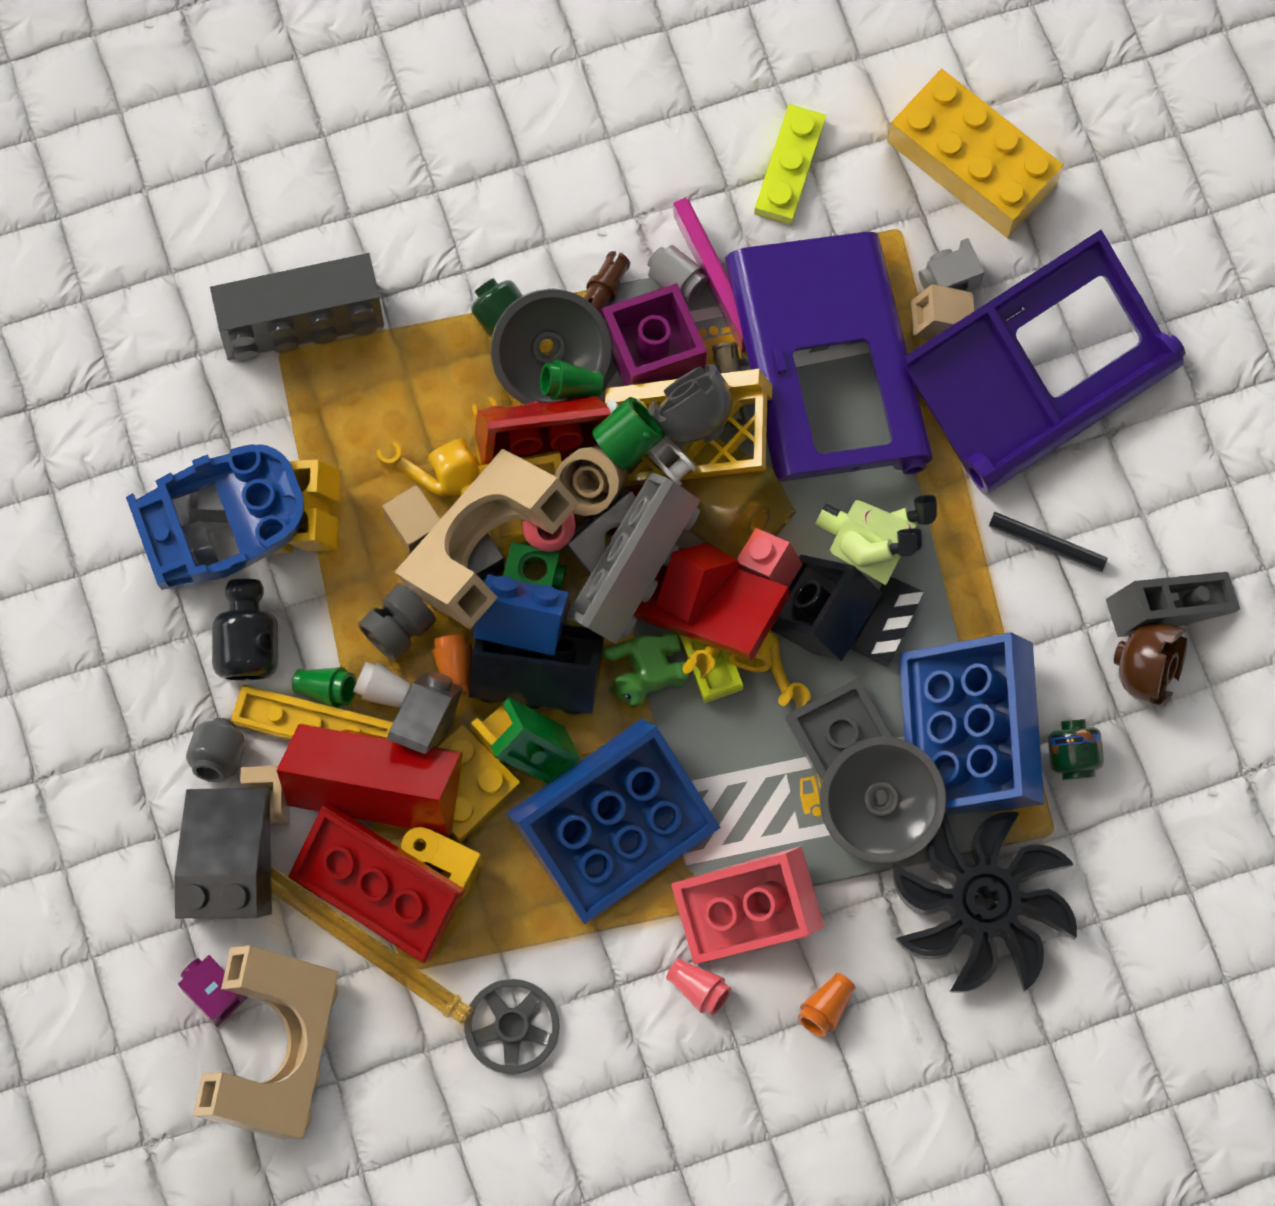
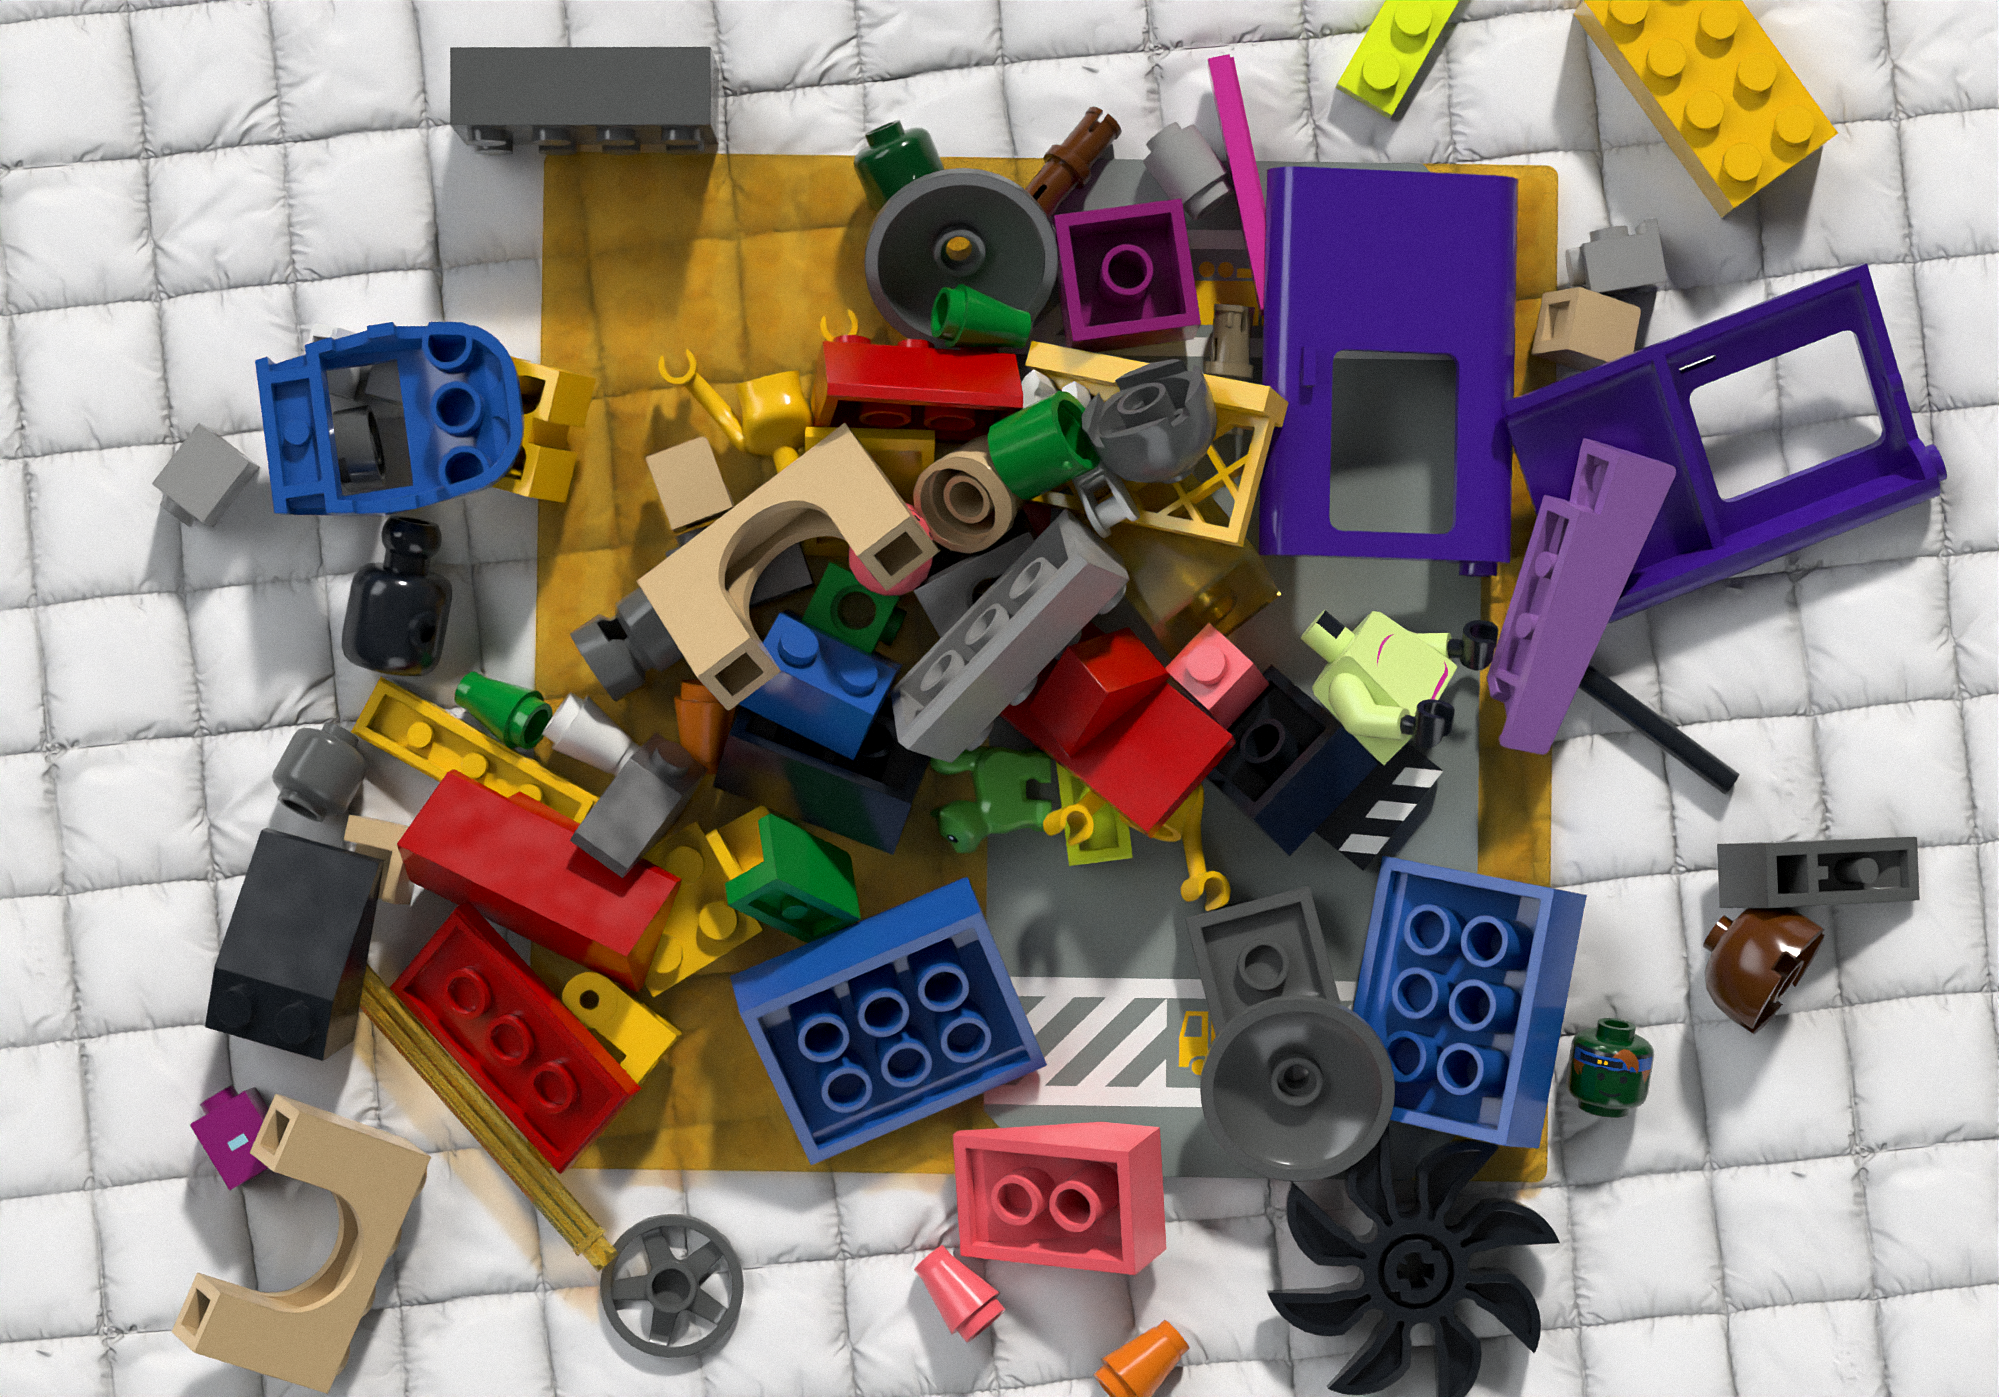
camera: 15 degrees right, 15 degrees up
(105, 586) = (204, 477): none -> light grey brick
(973, 460) = (1570, 588): none -> medium lavender wedge

